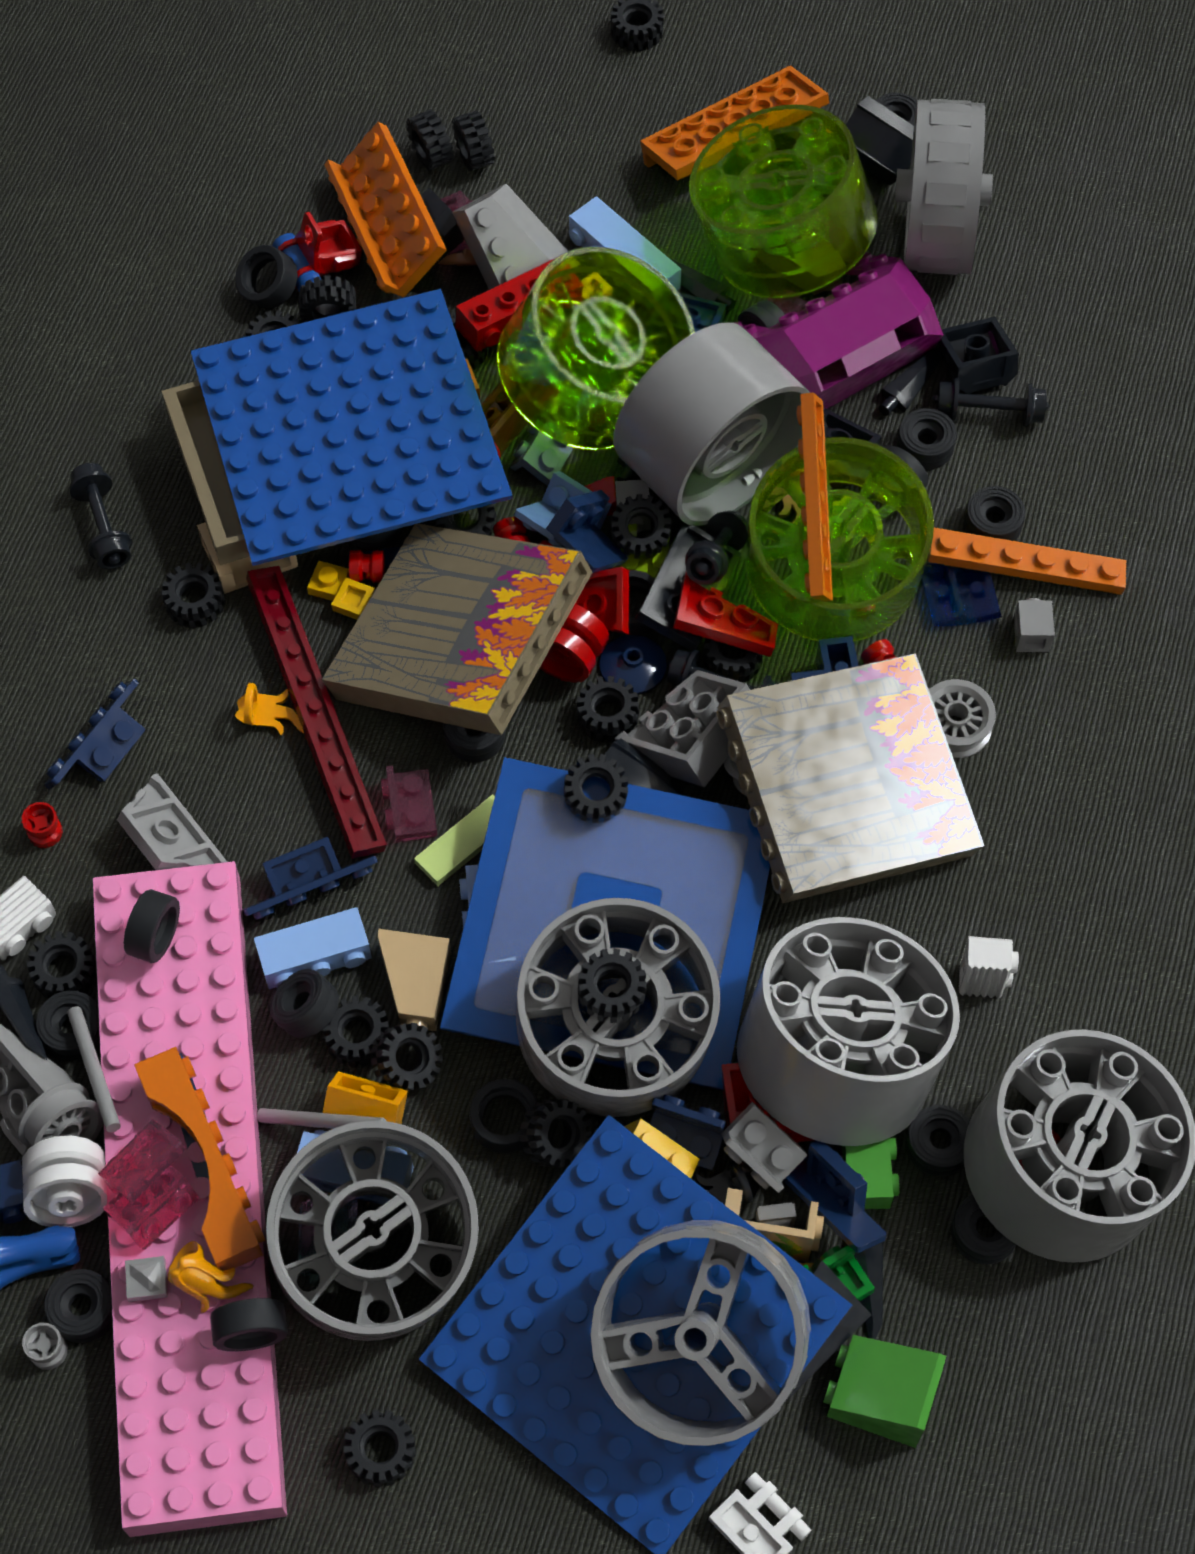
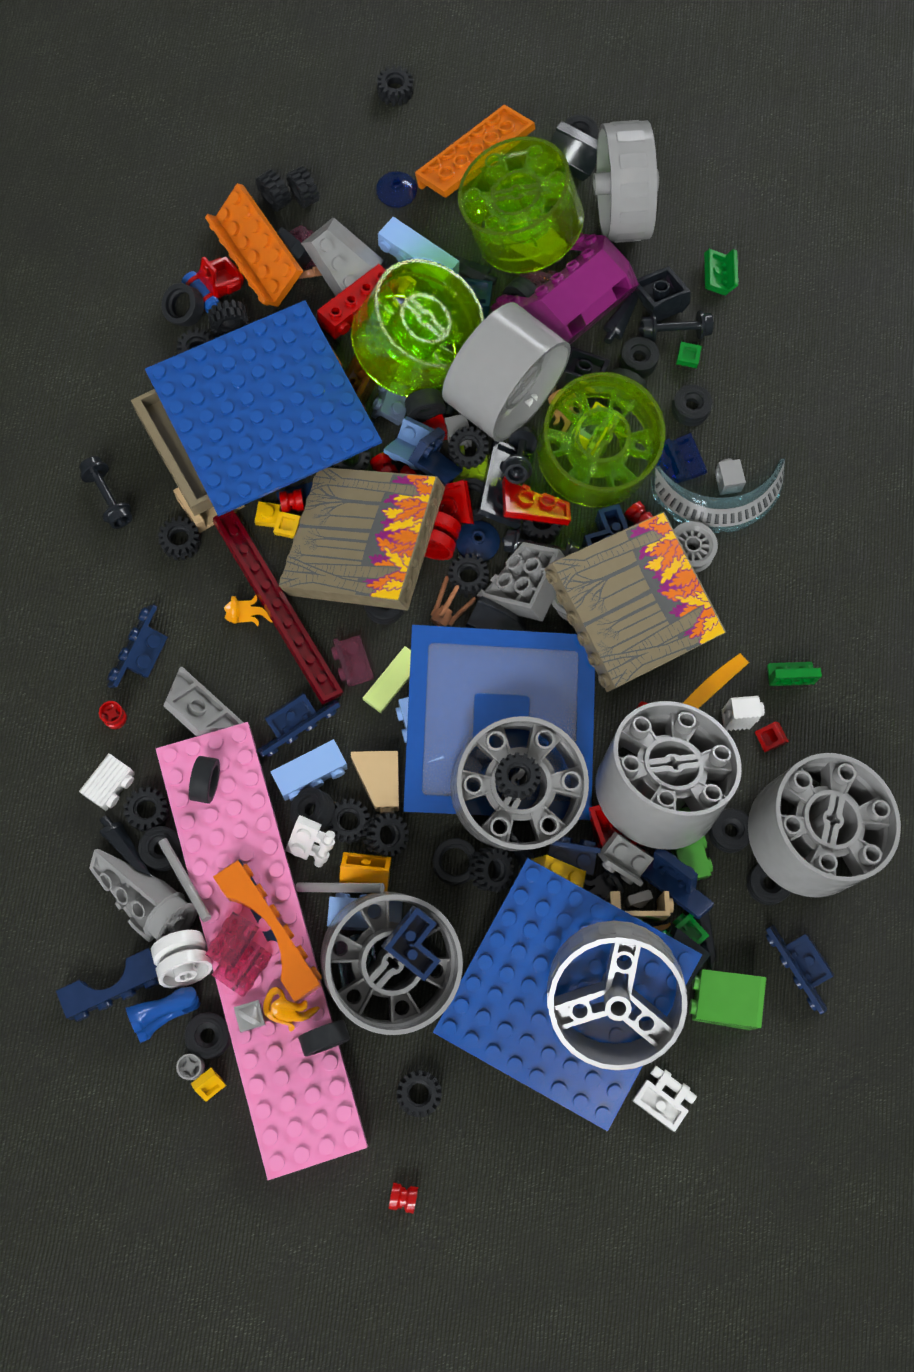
camera: 15 degrees left, 10 degrees up
(65, 1376) = (208, 1084): none -> yellow plate
(281, 1042) = (303, 838): none -> white plate
(395, 1194) = (406, 942): none -> dark blue brick
(557, 754) = (442, 615): none -> nougat plant
(589, 458) = (424, 404): none -> black tyre
(596, 768) = (476, 623): black tyre -> none
(611, 162) = (396, 195): none -> clear blue dish
(814, 485) = (583, 407): orange plate -> none
(963, 918) = (716, 681): none -> light orange sticker
(1003, 445) = (688, 355): none -> green plate
(1008, 675) = (717, 513): none -> windscreen
(1020, 1358) = (806, 964): none -> dark blue bracket
(1028, 561) = (723, 433): orange plate -> none
(1031, 1013) = (771, 736): none -> red slope
(1074, 335) = (721, 271): none -> green bracket
(1079, 925) = (793, 673): none -> green bracket

